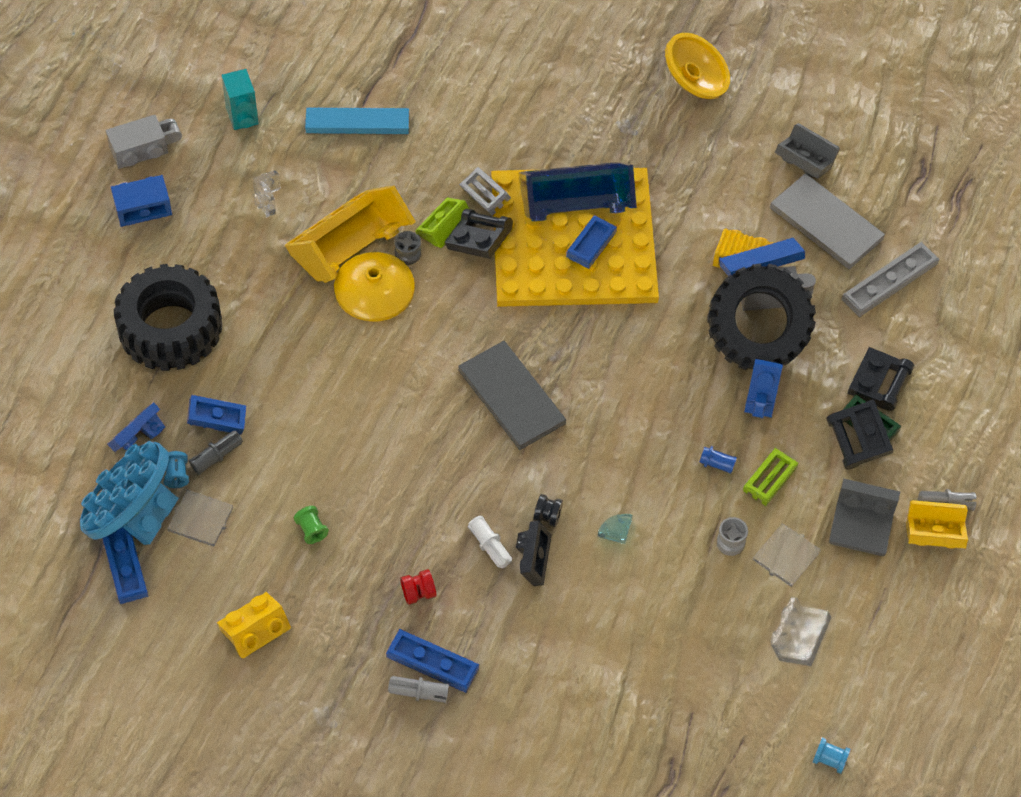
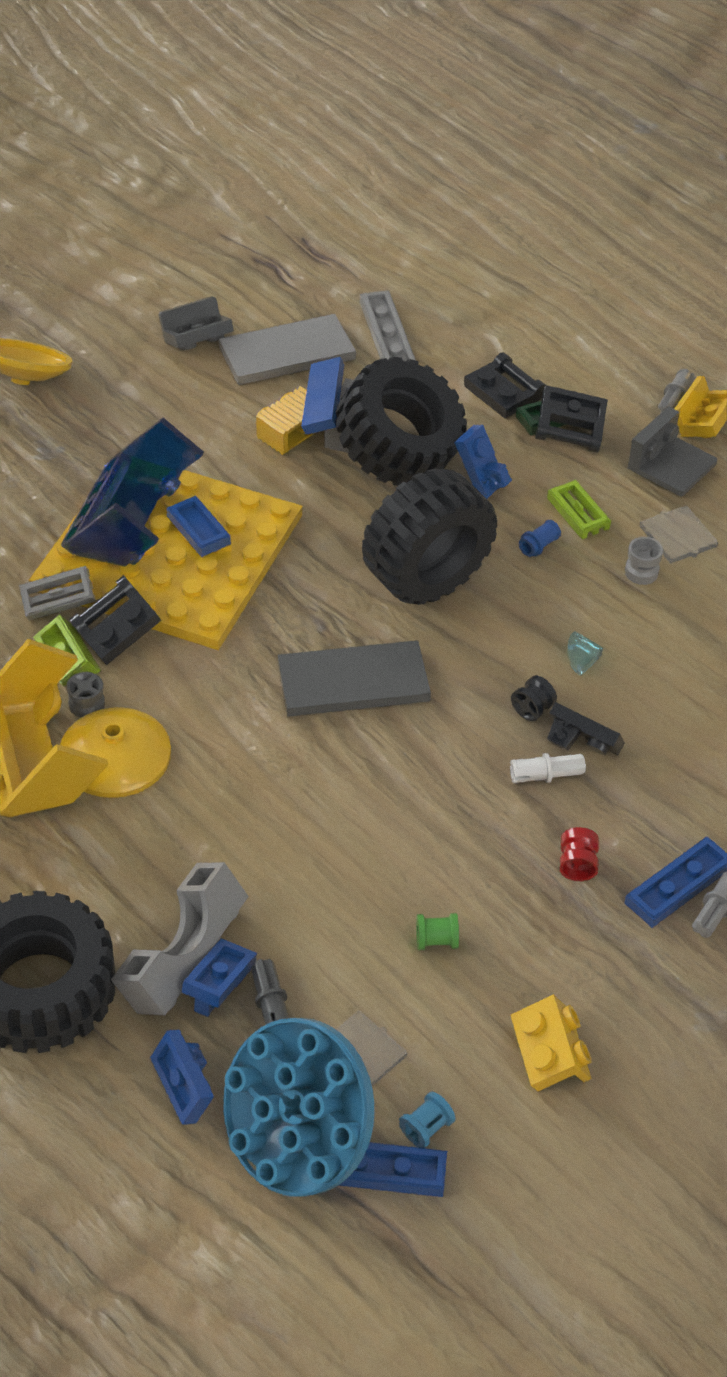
camera: 65 degrees left, 10 degrees down
(163, 571) = (427, 1119): none -> dark azure bush
(265, 387) = (208, 904): none -> light grey arch
(639, 378) = (429, 536): none -> black tyre

